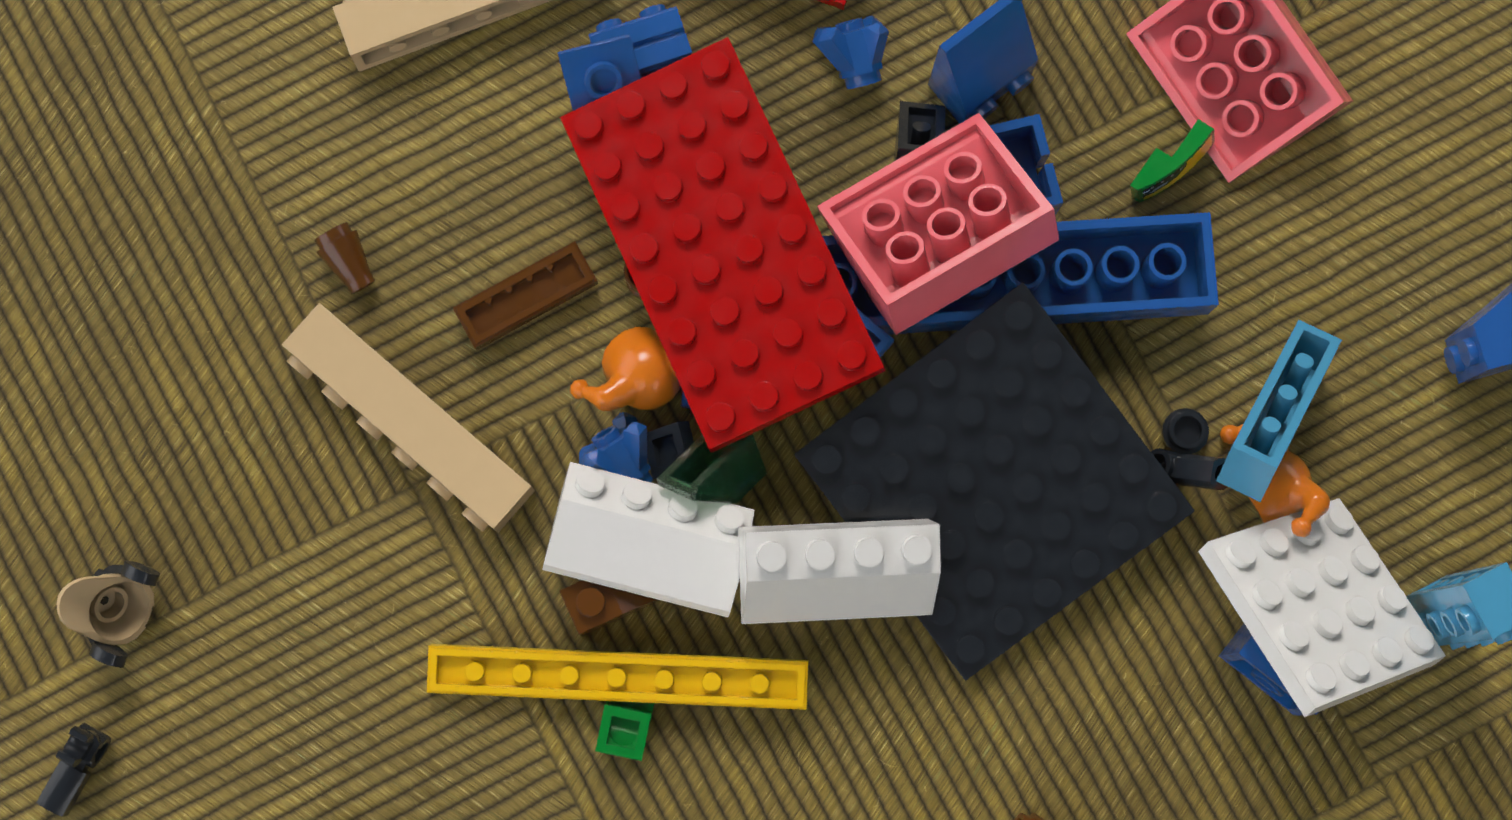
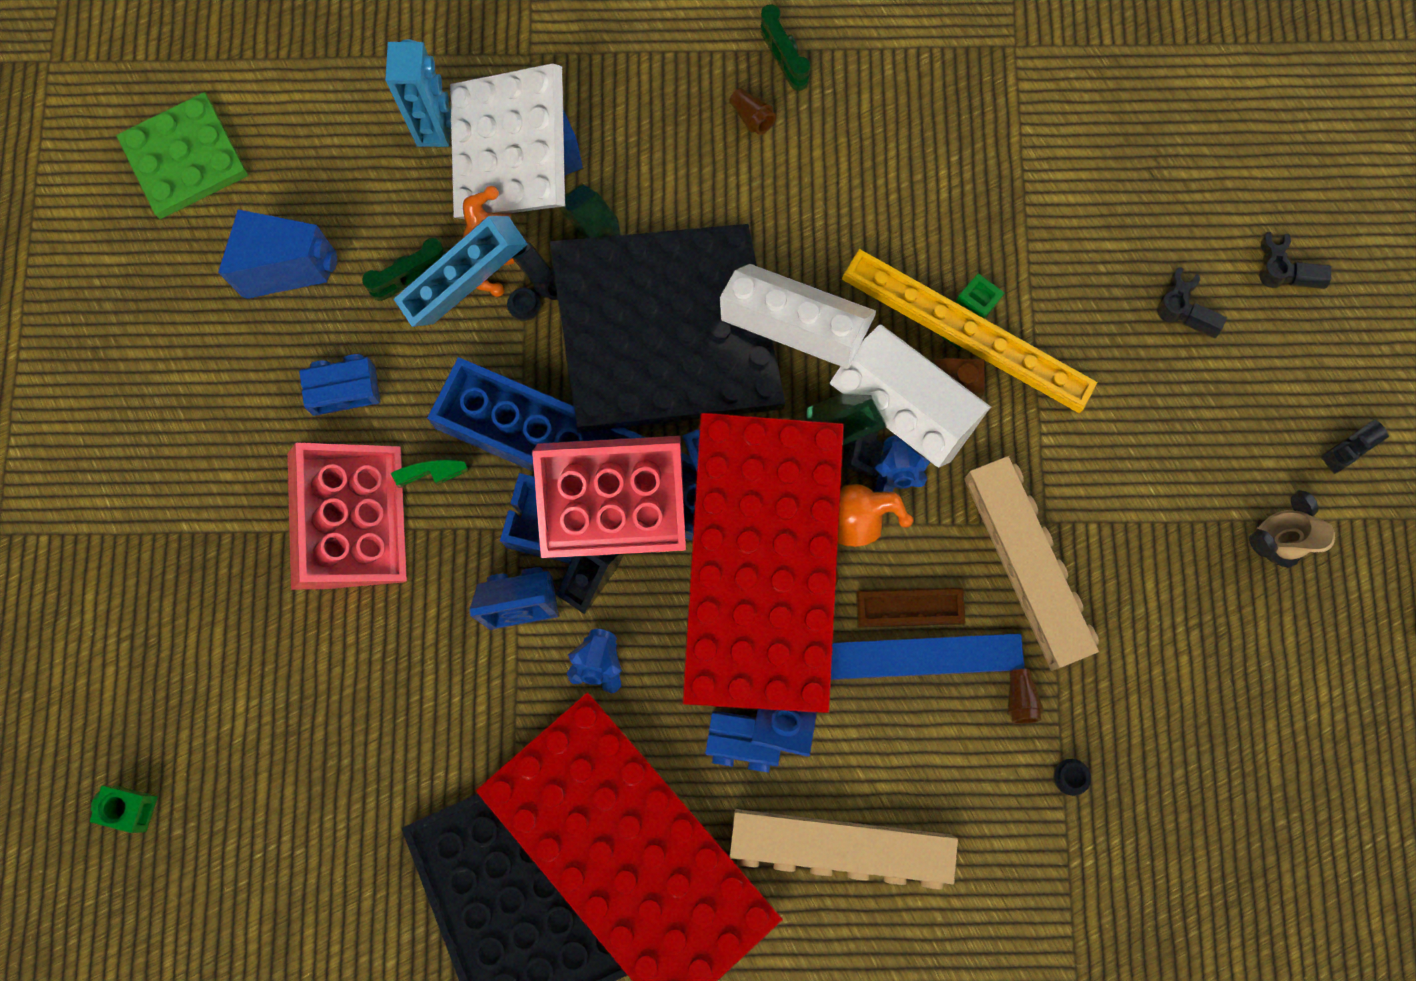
camera: 145 degrees left, 5 degrees down
(251, 198) = (1072, 777): none -> black plate
(481, 249) = (927, 656): none -> blue tile
(1173, 587) = (590, 213): none -> clear green slope
(1343, 212) = (339, 385): none -> blue brick
(1353, 396) = (402, 271): none -> dark green plate

